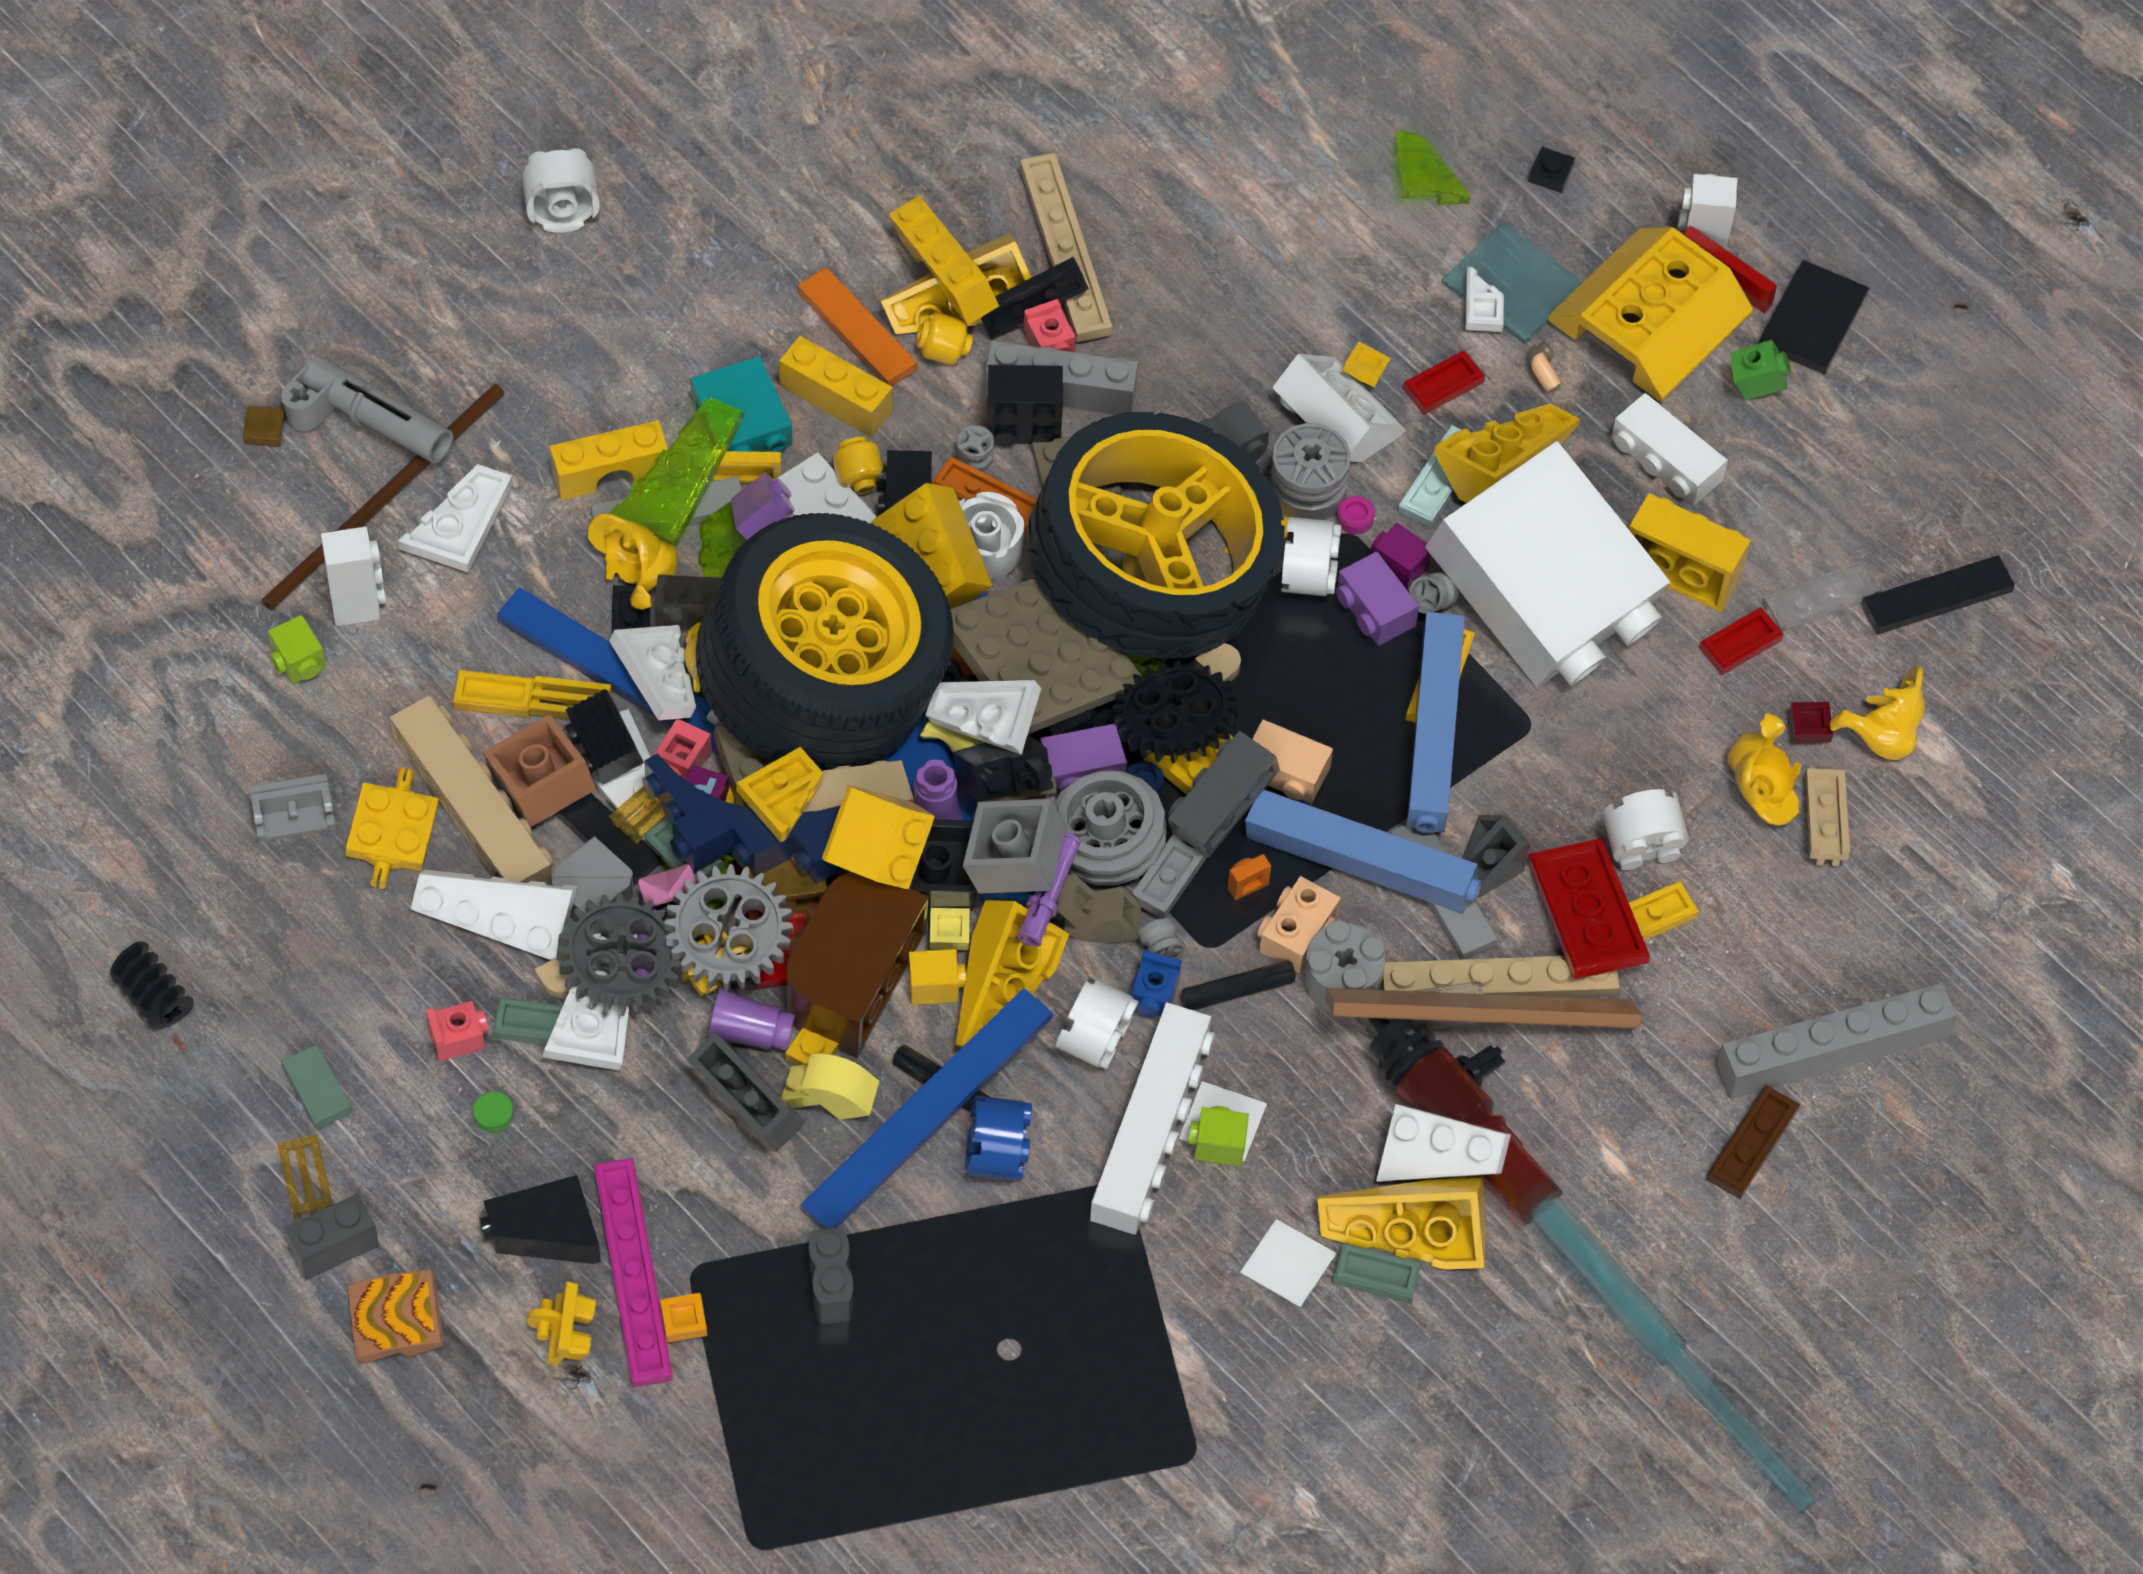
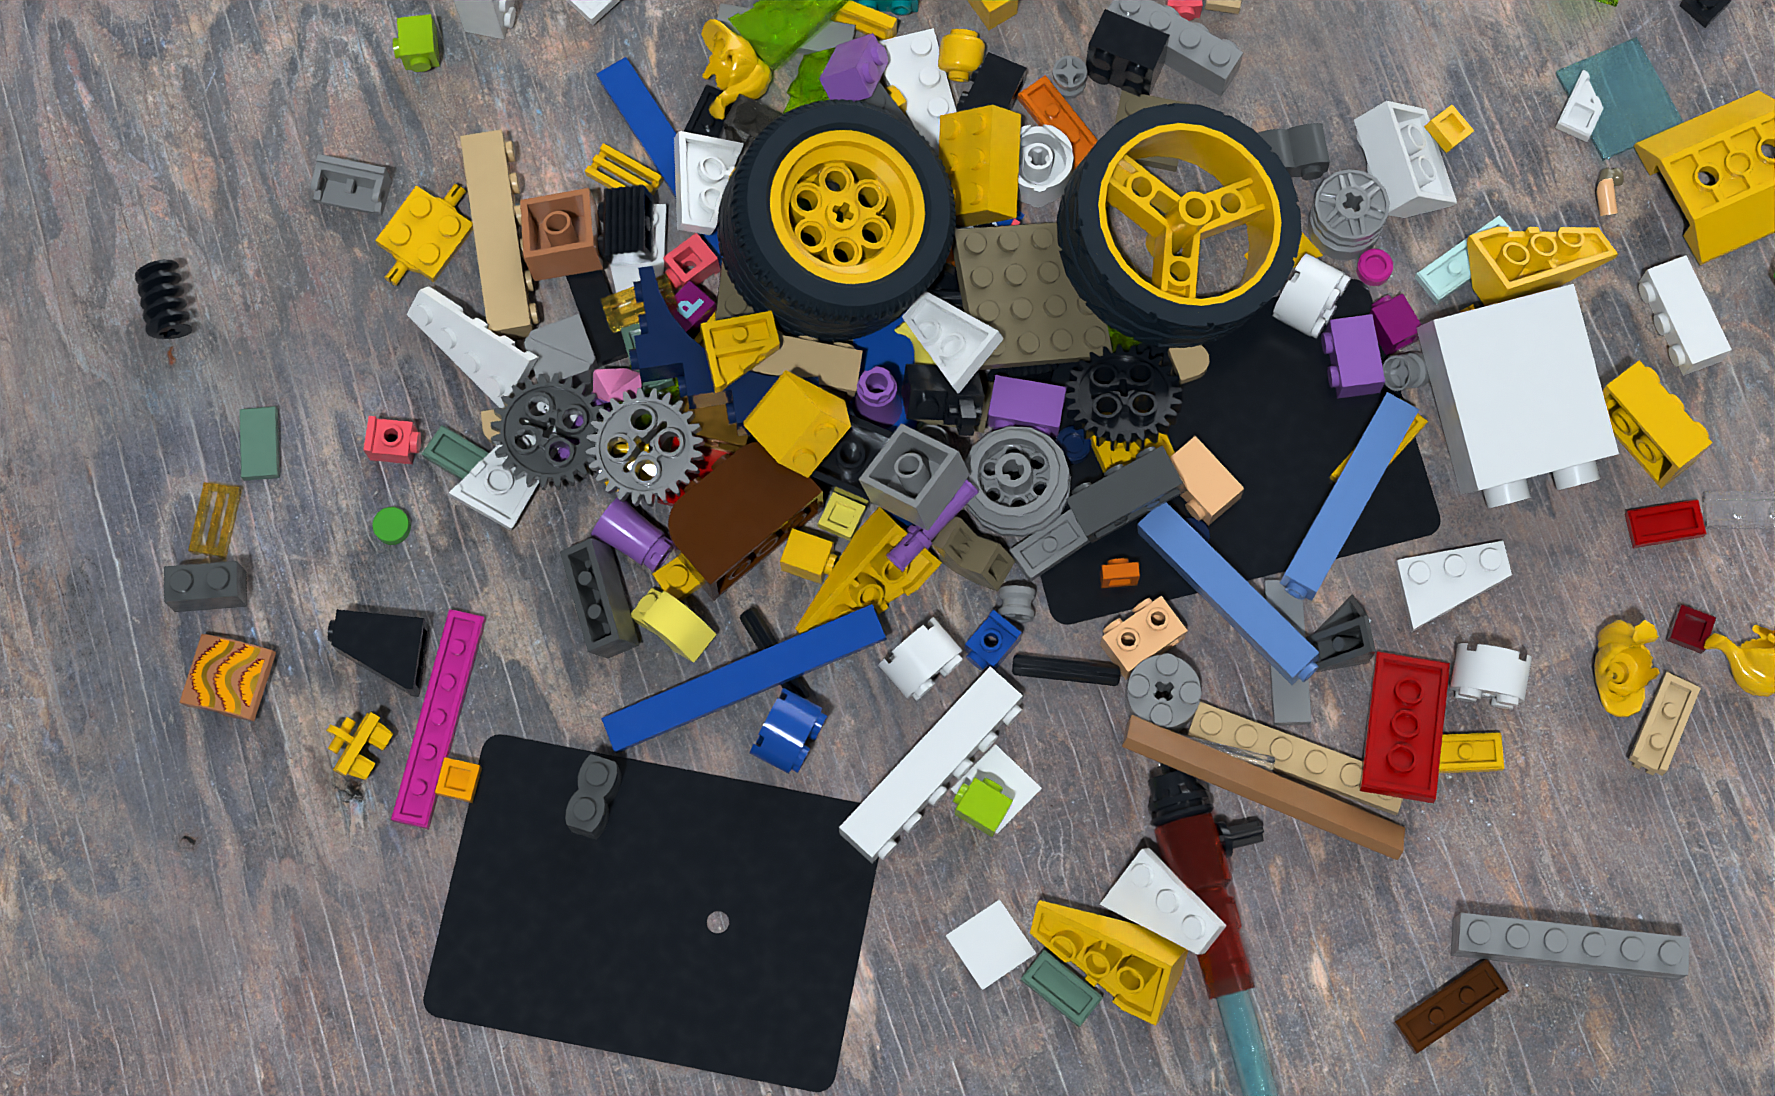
camera: 30 degrees right, 15 degrees up
(493, 693) = (563, 144): yellow tile -> none
(1443, 382) = (1512, 170): red tile -> none
(1563, 765) = (1448, 578): none -> white wing

